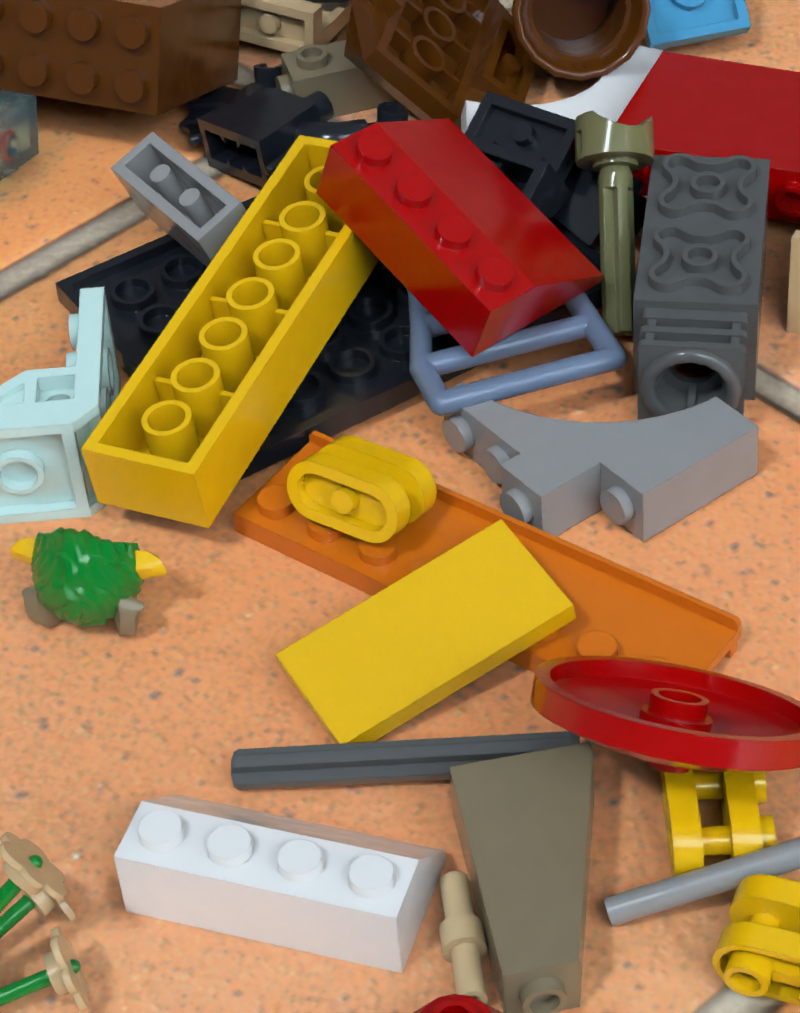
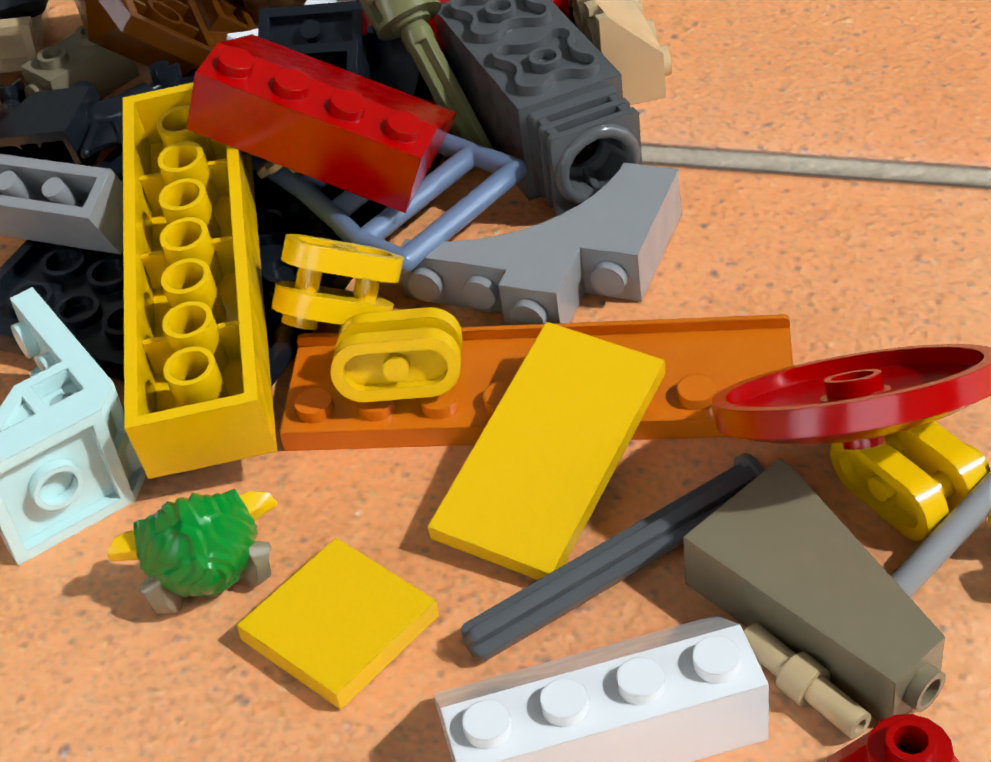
camera: 30 degrees left, 0 degrees up
(155, 698) = (338, 622): none -> yellow tile
(331, 406) = (307, 303): none -> yellow brick

